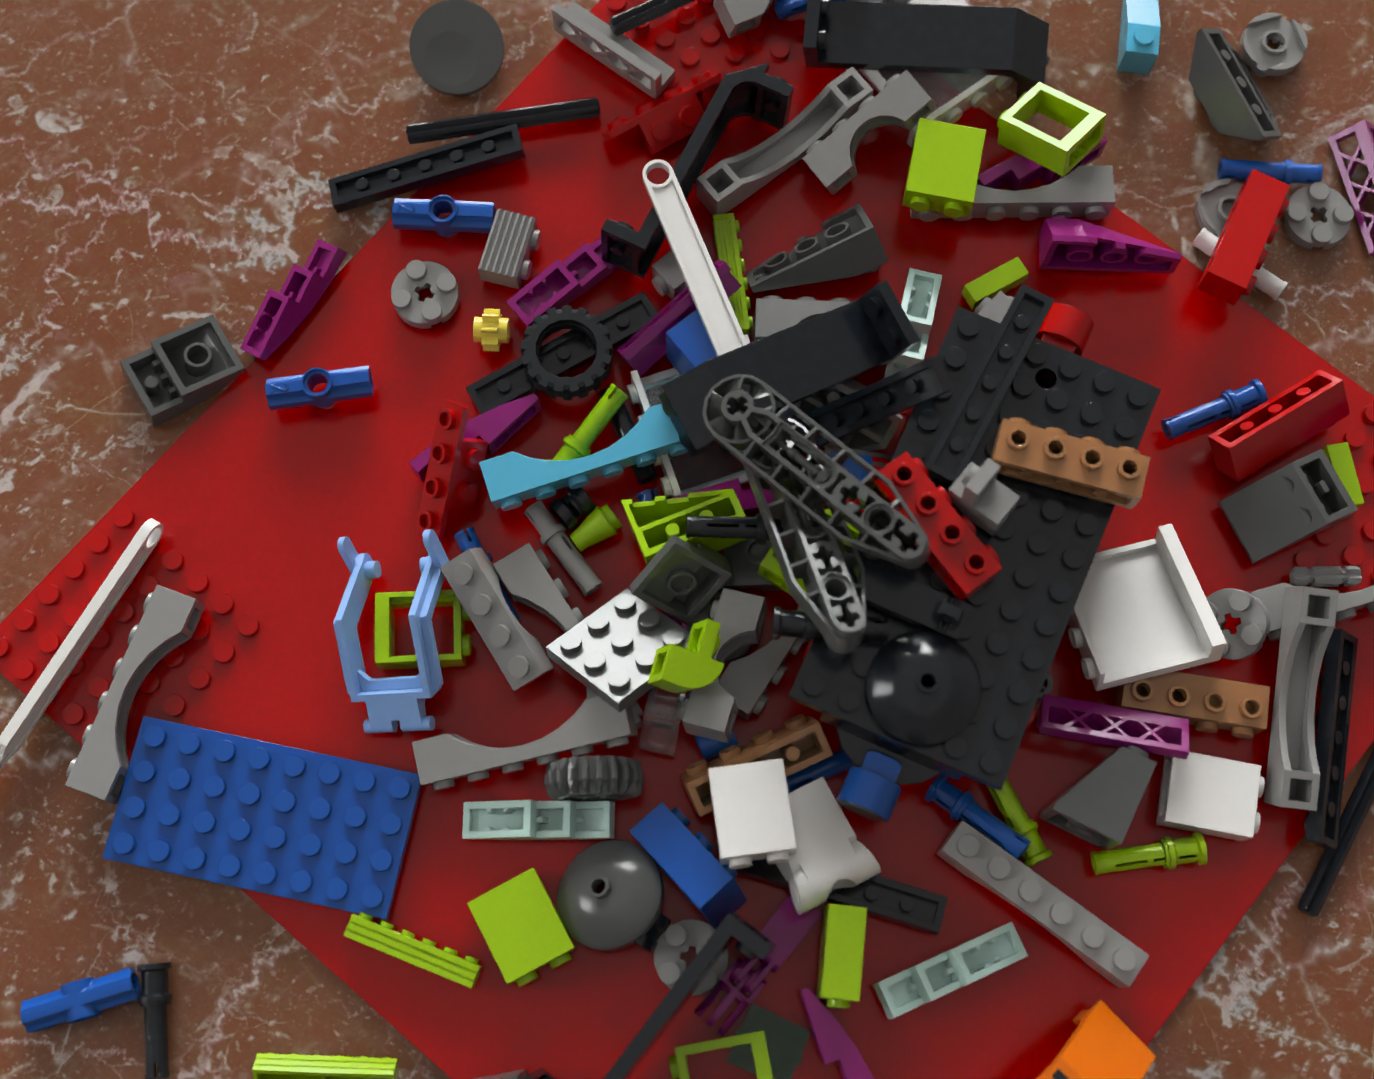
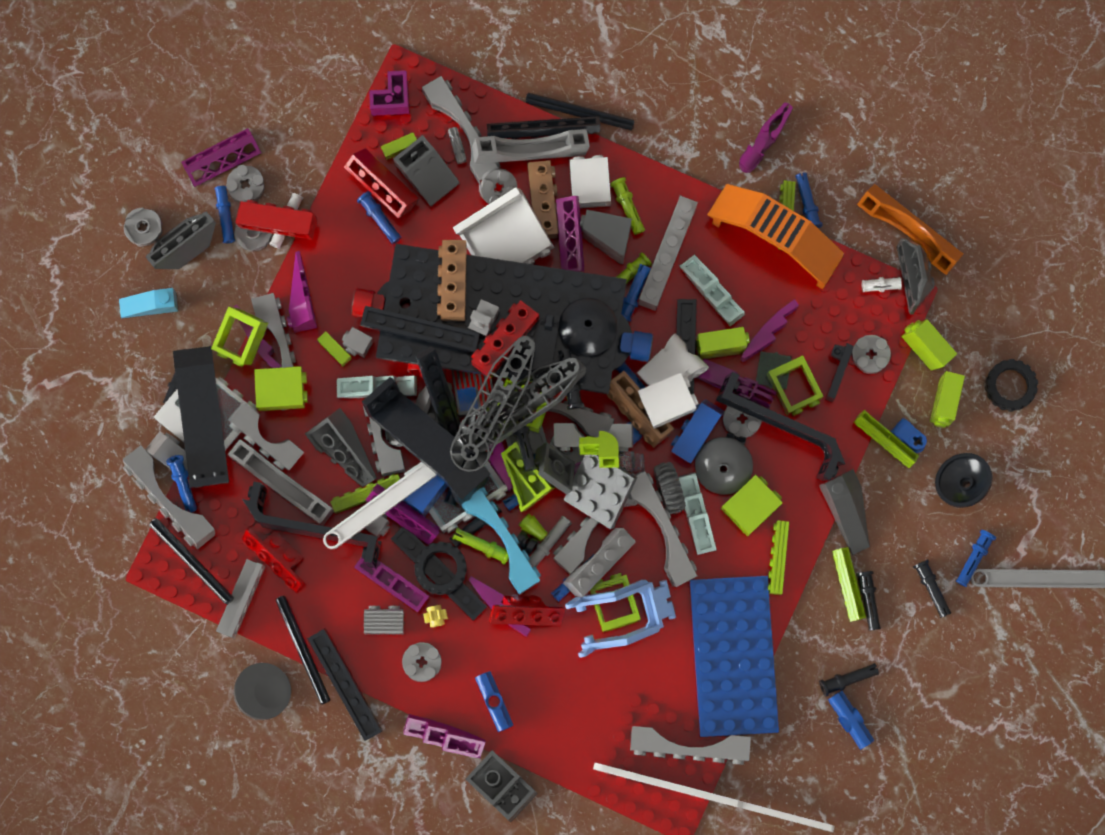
camera: 105 degrees left, 5 degrees up
(423, 214) = (370, 651): blue piece -> none

